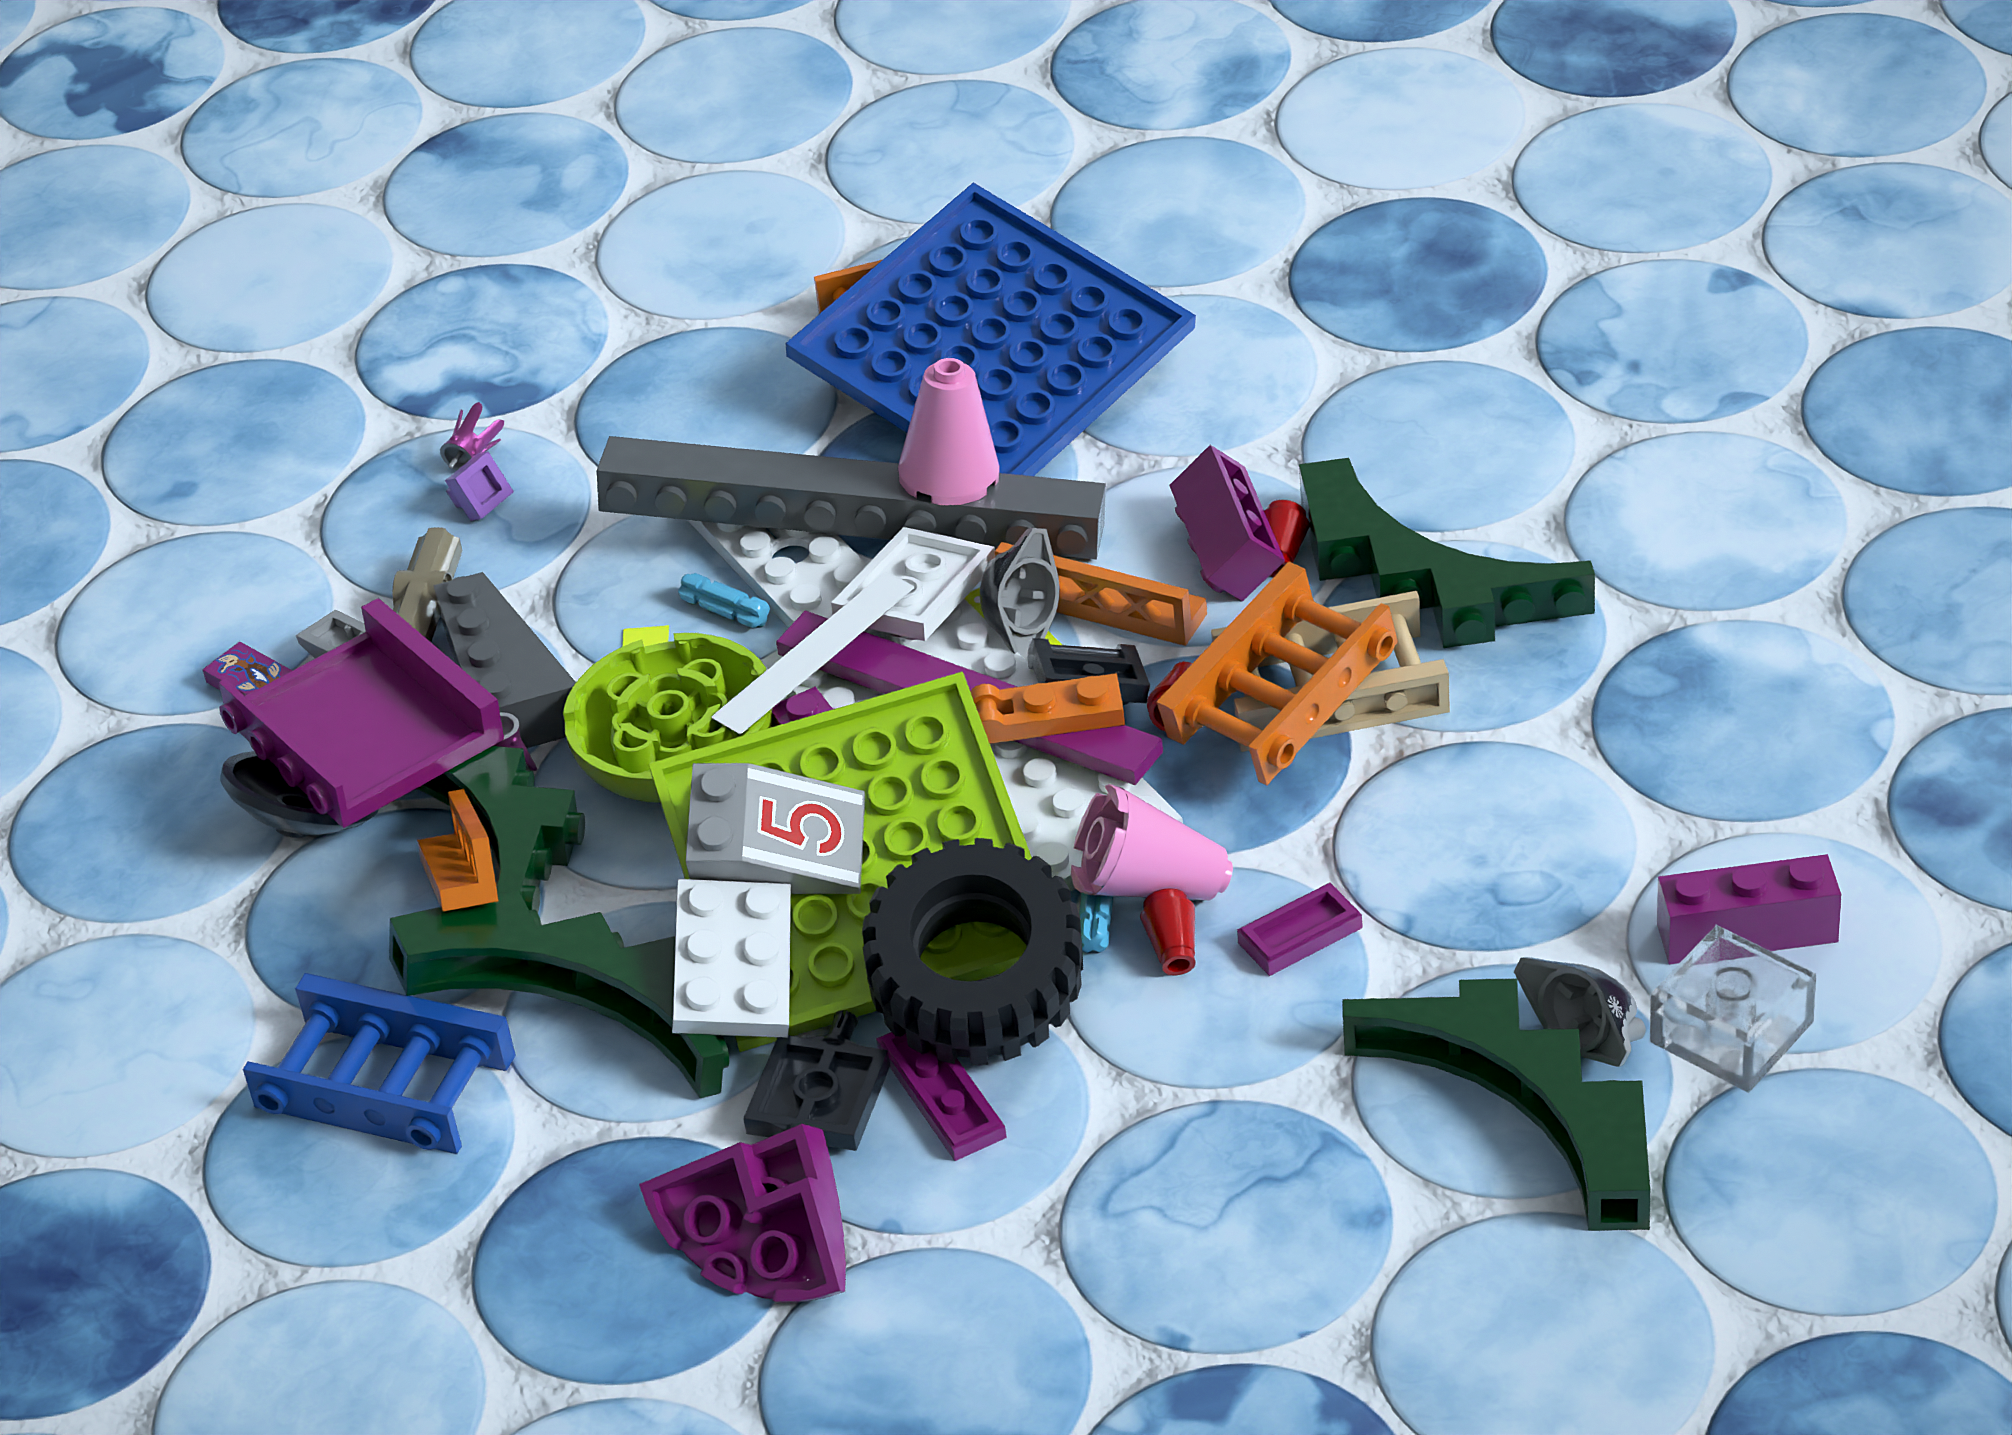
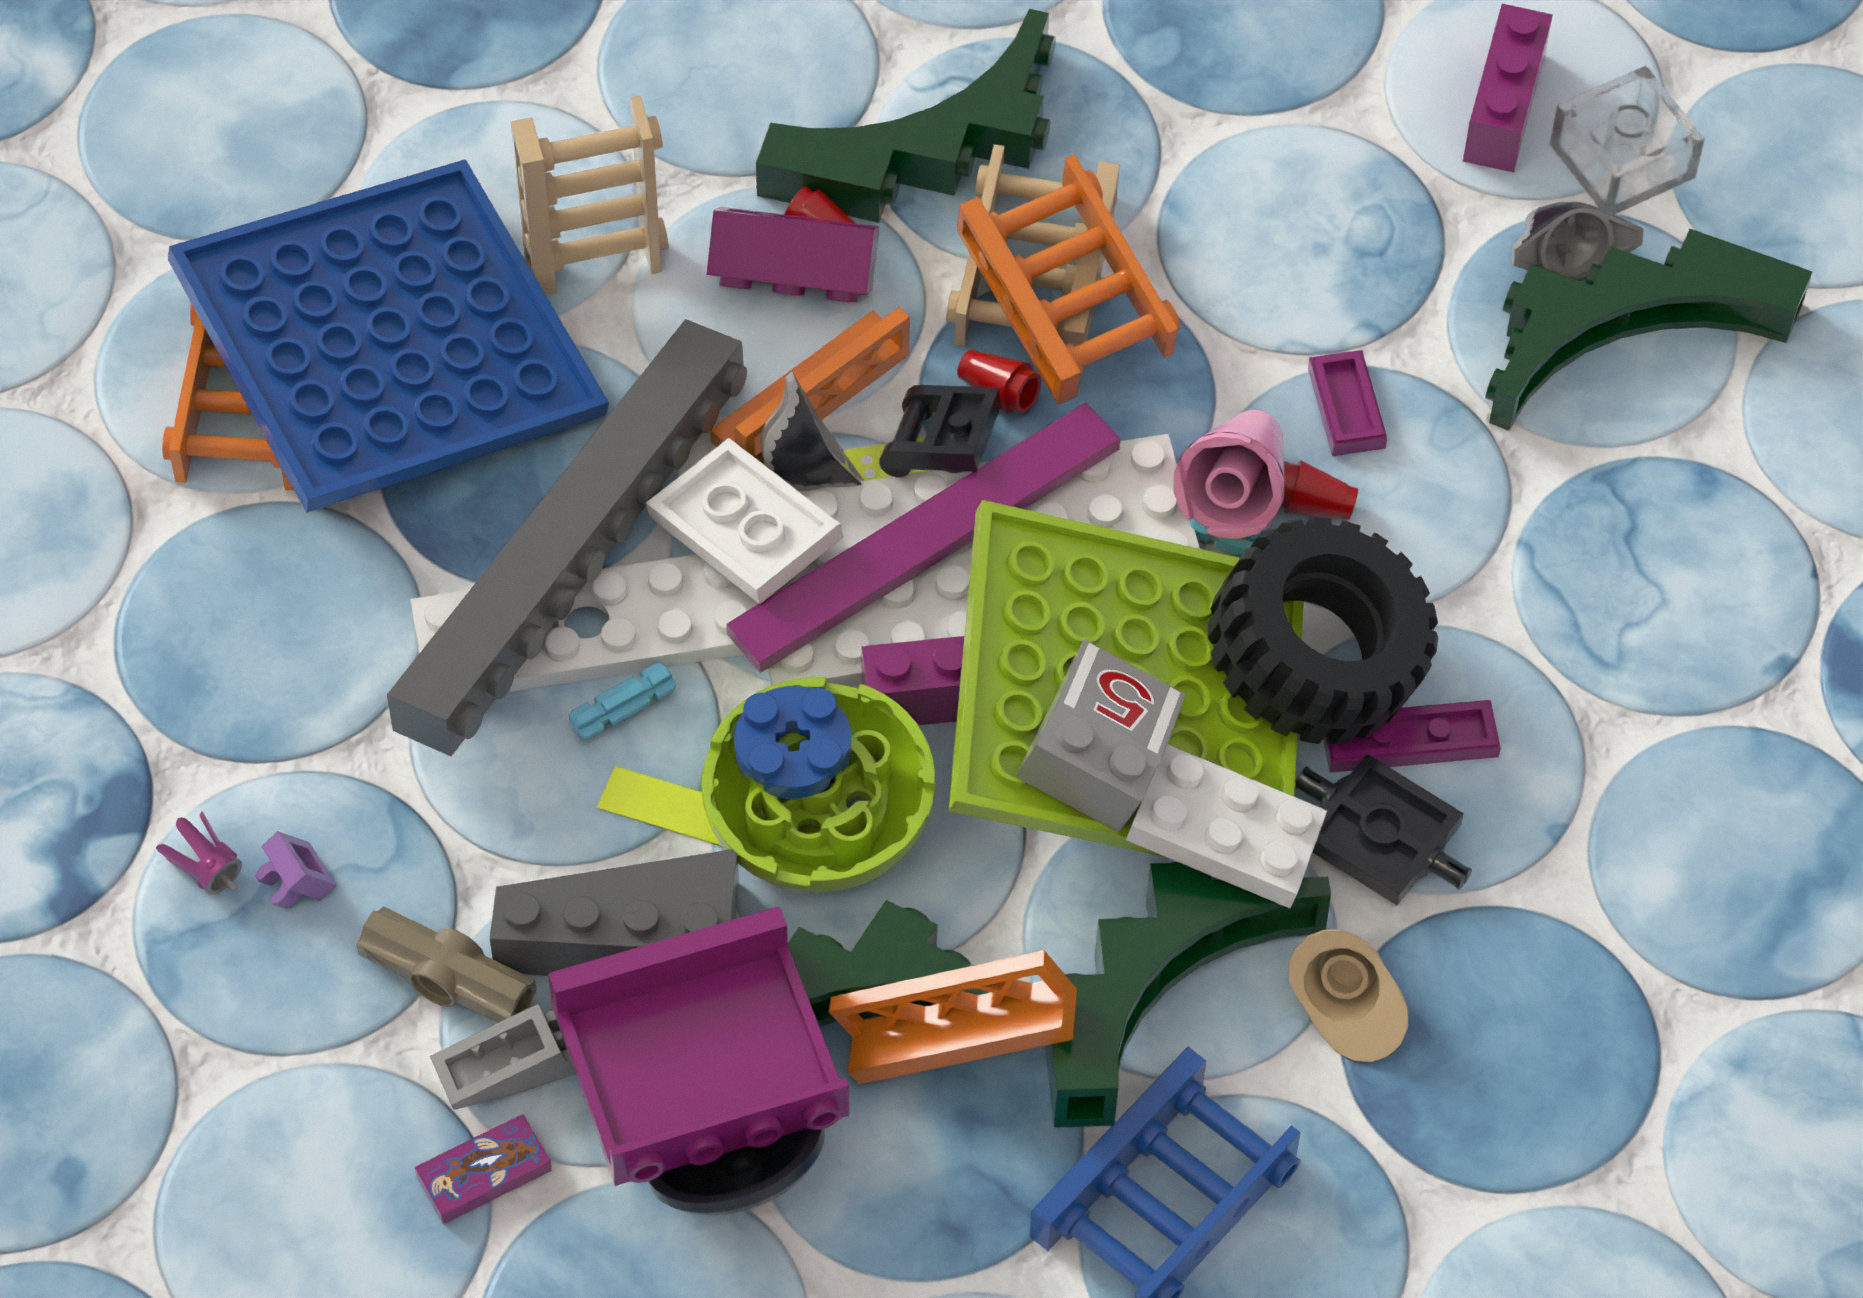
camera: 75 degrees left, 15 degrees up
(632, 1114) = (1349, 994): none -> tan piece
(662, 666) = (785, 711): none -> blue plate
(758, 1217) = (1530, 919): magenta brick -> none
(812, 652) = (824, 628): white sticker -> none
(948, 438) = (606, 405): bright pink cone -> none
(1049, 708) = (1008, 458): orange plate -> none
(1133, 353) = (540, 190): none -> tan fence

